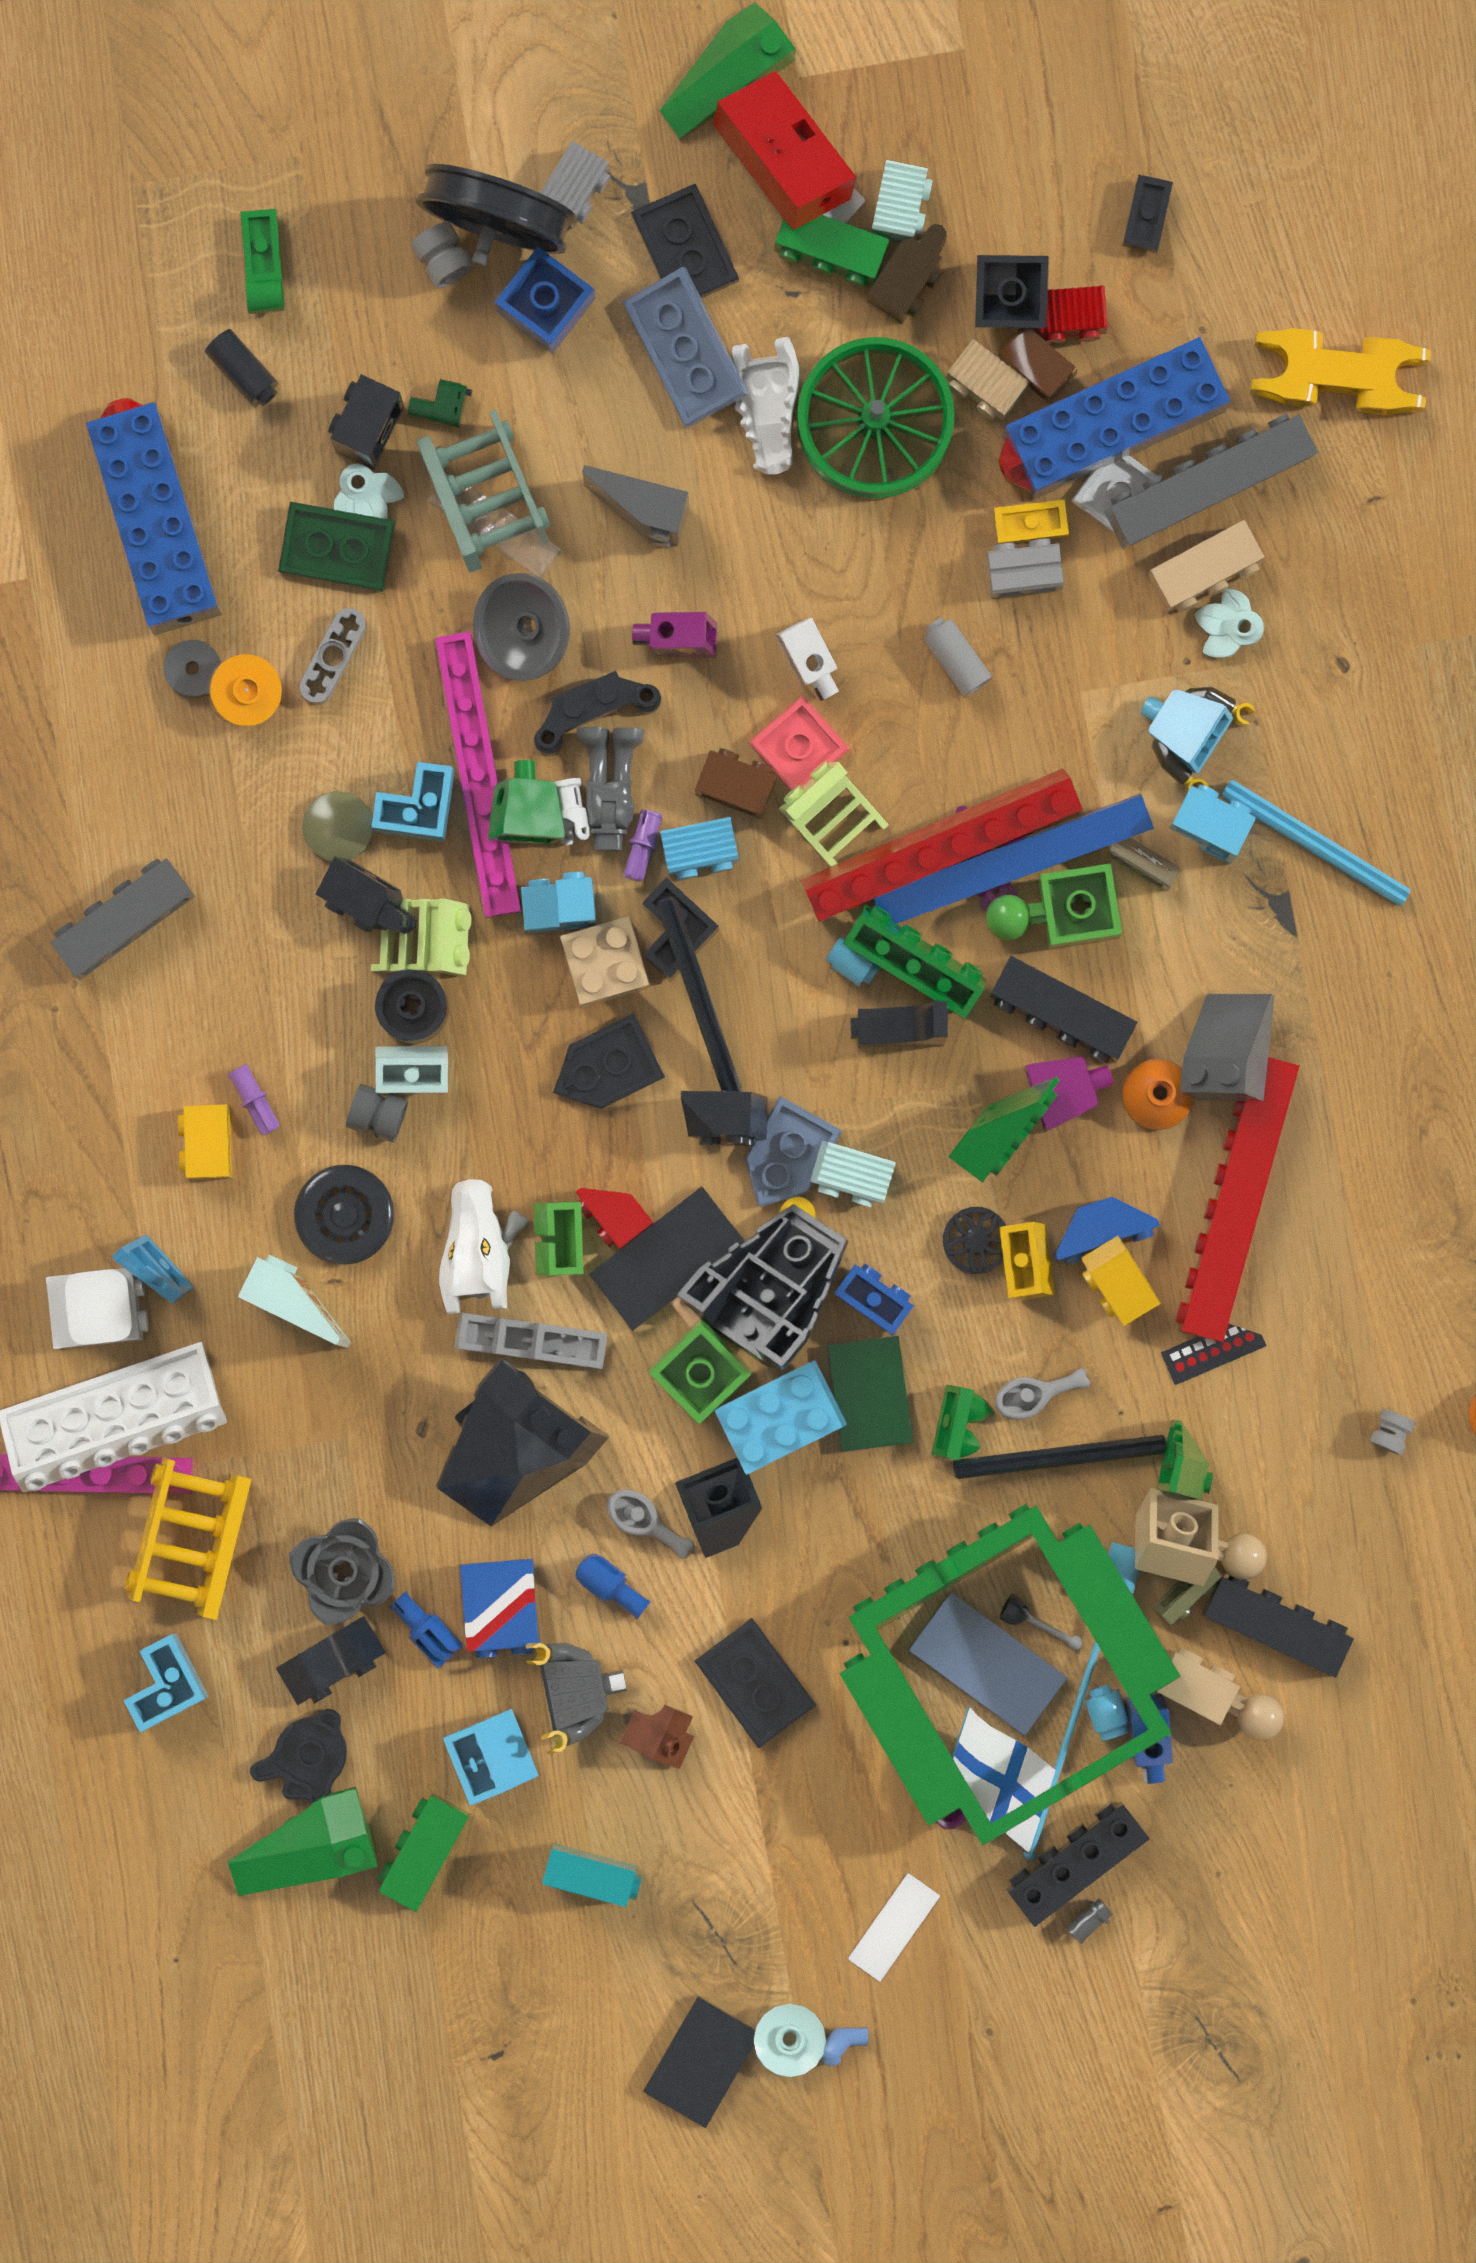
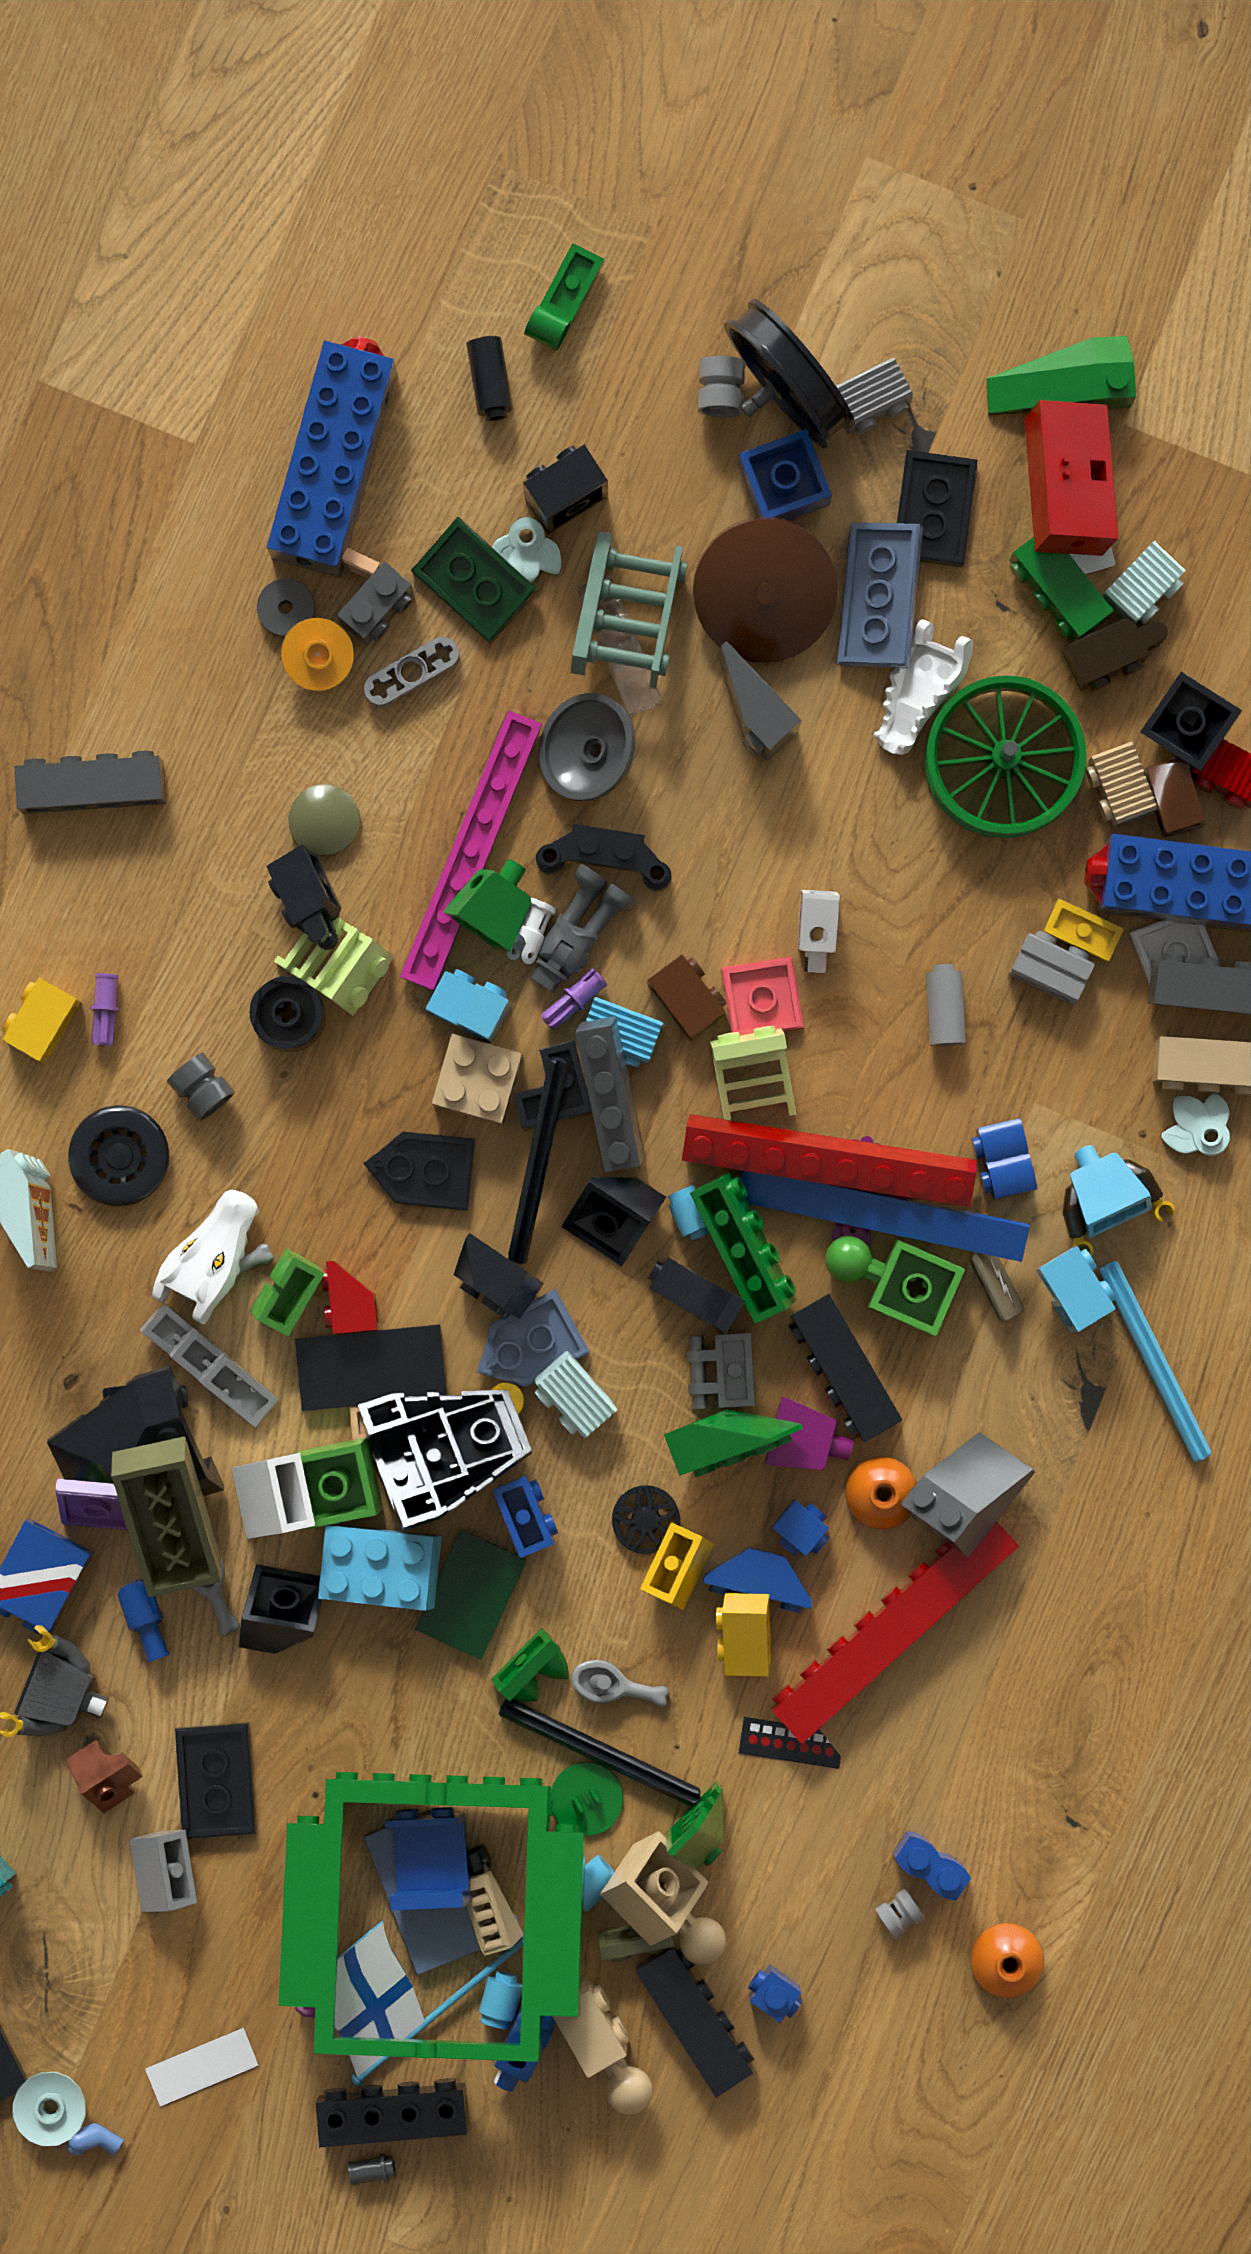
camera: 35 degrees right, 0 degrees up
(234, 592) = (359, 563): none -> light nougat tile
(267, 618) = (376, 604): none -> dark grey brick
(411, 1069) = (253, 1067): light aqua brick -> none
(424, 813) = (403, 854): medium azure brick -> none
(446, 408) = (643, 519): dark green piece -> none
(511, 1514) = (89, 1504): none -> medium lavender tile
(579, 1483) = (166, 1516): none -> olive brick
(587, 401) = (765, 589): none -> reddish brown dish
(655, 1413) = (273, 1496): none -> white brick
(692, 636) = (729, 844): magenta torso -> none
(724, 903) = (610, 1094): none -> dark grey brick
(760, 1782) = (163, 1871): none -> light grey brick
(790, 1003) = (613, 1214): none -> black slope
(970, 1069) = (733, 1371): none -> flat silver plate
(975, 1632) = (430, 1859): none -> blue panel
(1056, 1662) = (485, 1930): none -> tan slope
(1071, 1498) = (587, 1797): none -> green piece
(1086, 753) = (1005, 1159): none -> blue brick
(1110, 1165) = (801, 1528): none -> blue brick
(1330, 1562) = (775, 1993): none -> blue brick
(1401, 1376) = (941, 1870): none -> blue brick

